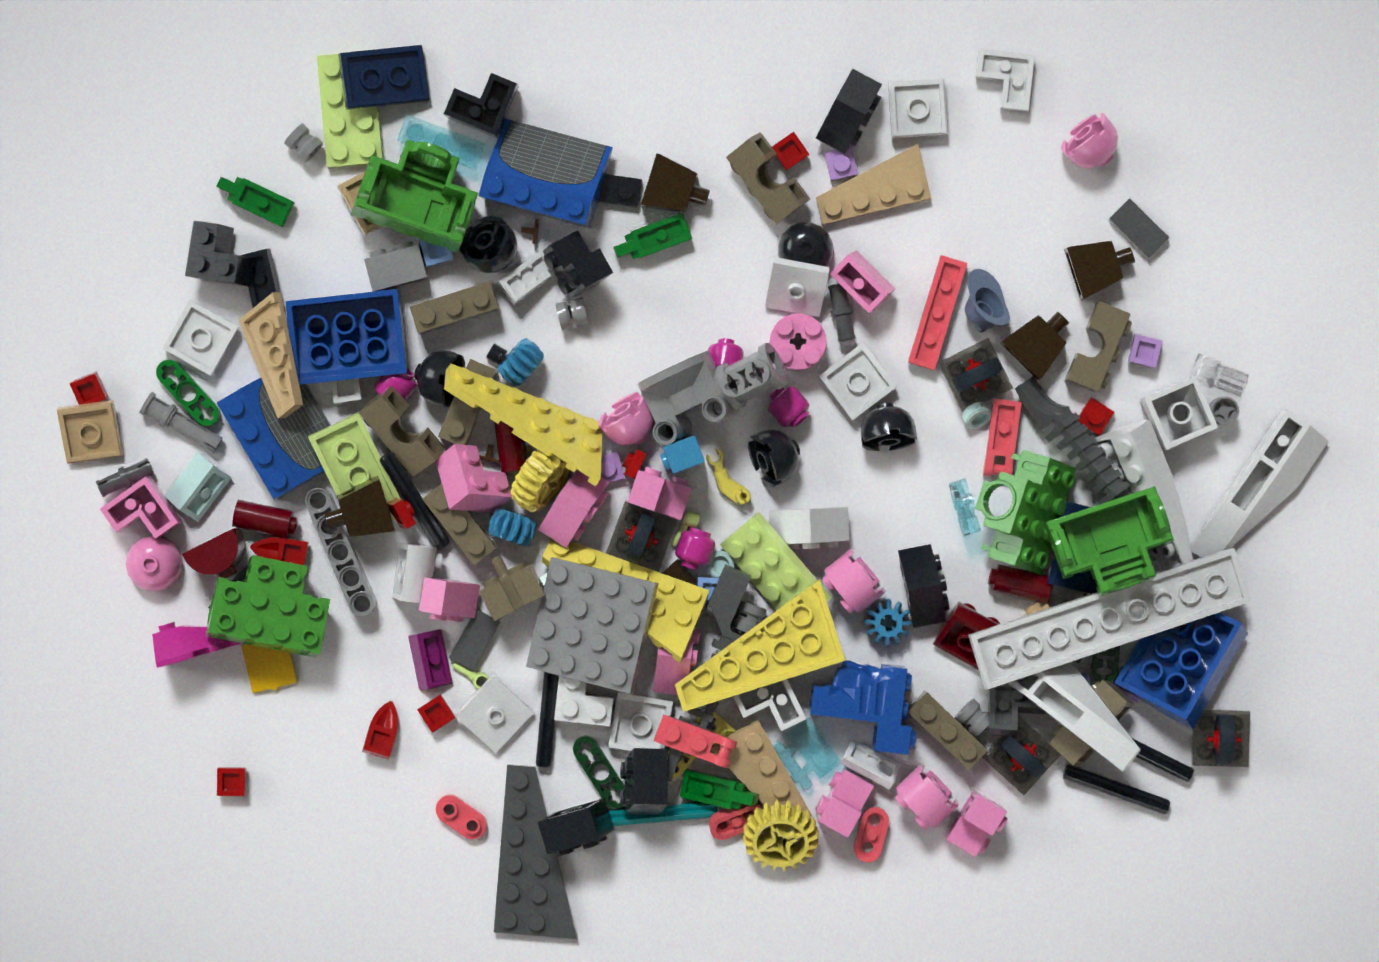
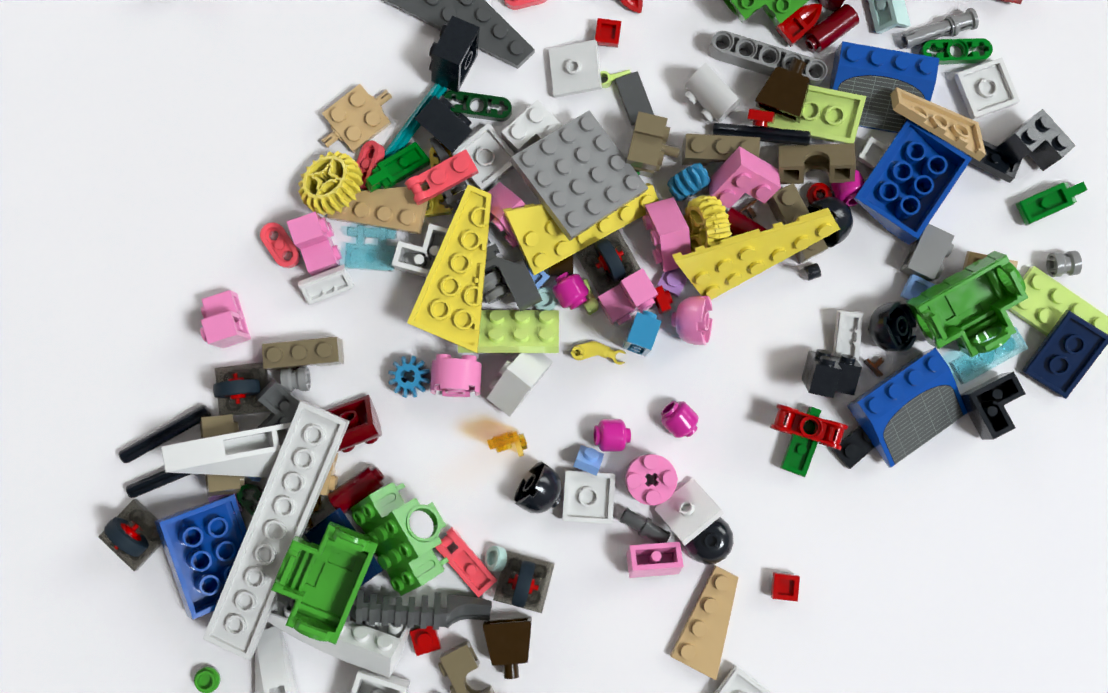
camera: 135 degrees right, 5 degrees down
(422, 414) = (811, 193): none -> red plate
(430, 659) = (645, 59): magenta slope -> none
(449, 599) = (678, 98): bright pink brick -> none
(454, 307) = (873, 261): dark tan arch -> none
(520, 362) = (795, 281): dark azure gear -> none
(547, 721) = (535, 93): black axle -> none
(578, 312) = (798, 344): light grey wheel -> none
(637, 230) = (826, 431): none -> red piece
(672, 187) = (828, 484): dark brown torso -> none
(701, 382) = (669, 392): light grey piece -> none
(703, 867) = (356, 118): none -> tan plate
(751, 164) = (801, 554): dark tan arch -> none
(775, 456) = (587, 397): black cylinder -> none
(826, 408) = (588, 460): none -> light blue plate
(841, 164) = (746, 614): lavender plate -> none
(850, 112) = (782, 654): black brick -> none
(870, 696) = (367, 321): blue brick -> none
(873, 493) = (503, 442): none -> clear yellow bracket
(924, 585) = (412, 422): black brick -> none
(926, 797) = (270, 300): bright pink brick -> none
(937, 312) = (589, 592): coral plate -> none
(965, 507) = (440, 496): clear light blue plate -> none
(986, 301) = (566, 632): sand blue piece -> none
(1285, 570) = (207, 679): none -> bright green plate

